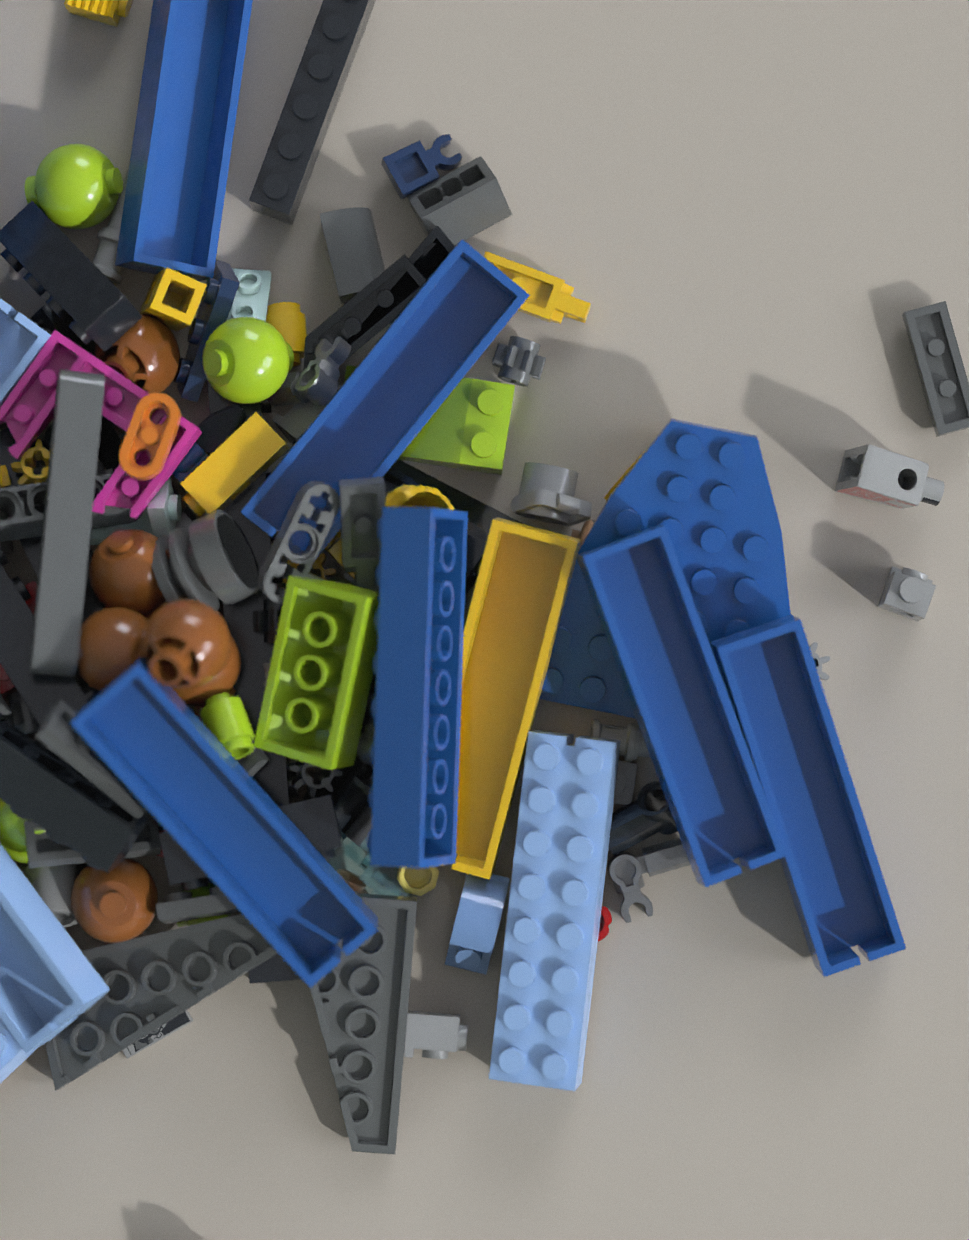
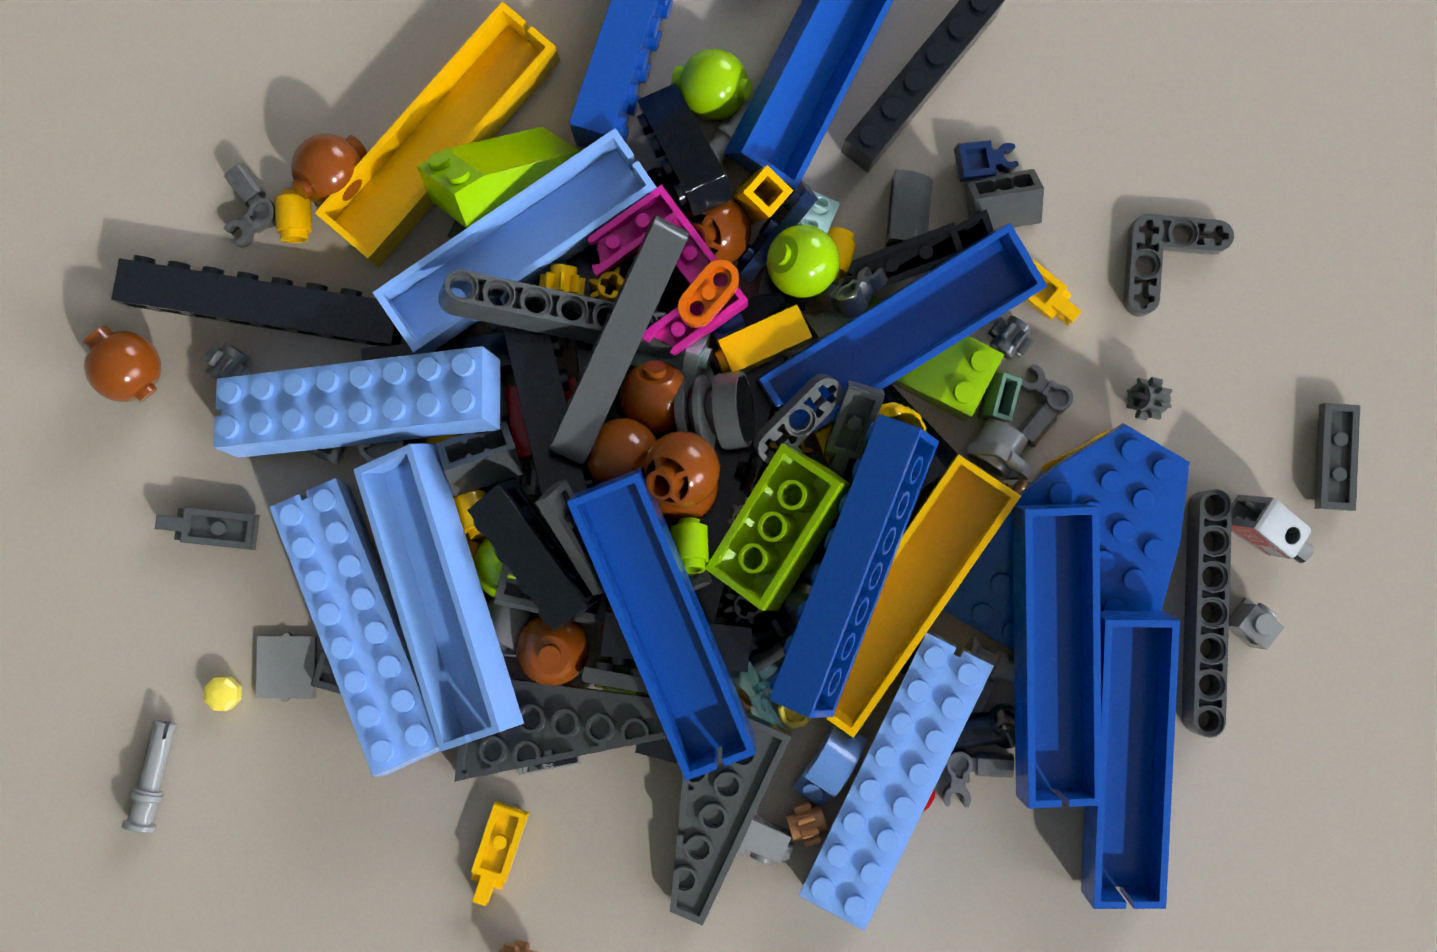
camera: 15 degrees right, 0 degrees up
(132, 1150) = (497, 849): none -> yellow hinge
(473, 997) = (807, 823): none -> medium nougat gear
(520, 434) = (1000, 397): none -> sand green piece
(597, 414) = (1055, 399): none -> flat silver bar
(659, 187) = (1162, 241): none -> dark grey beam
(701, 376) = (1149, 398): none -> dark grey gear
(854, 577) = (1217, 627): none -> dark grey beam

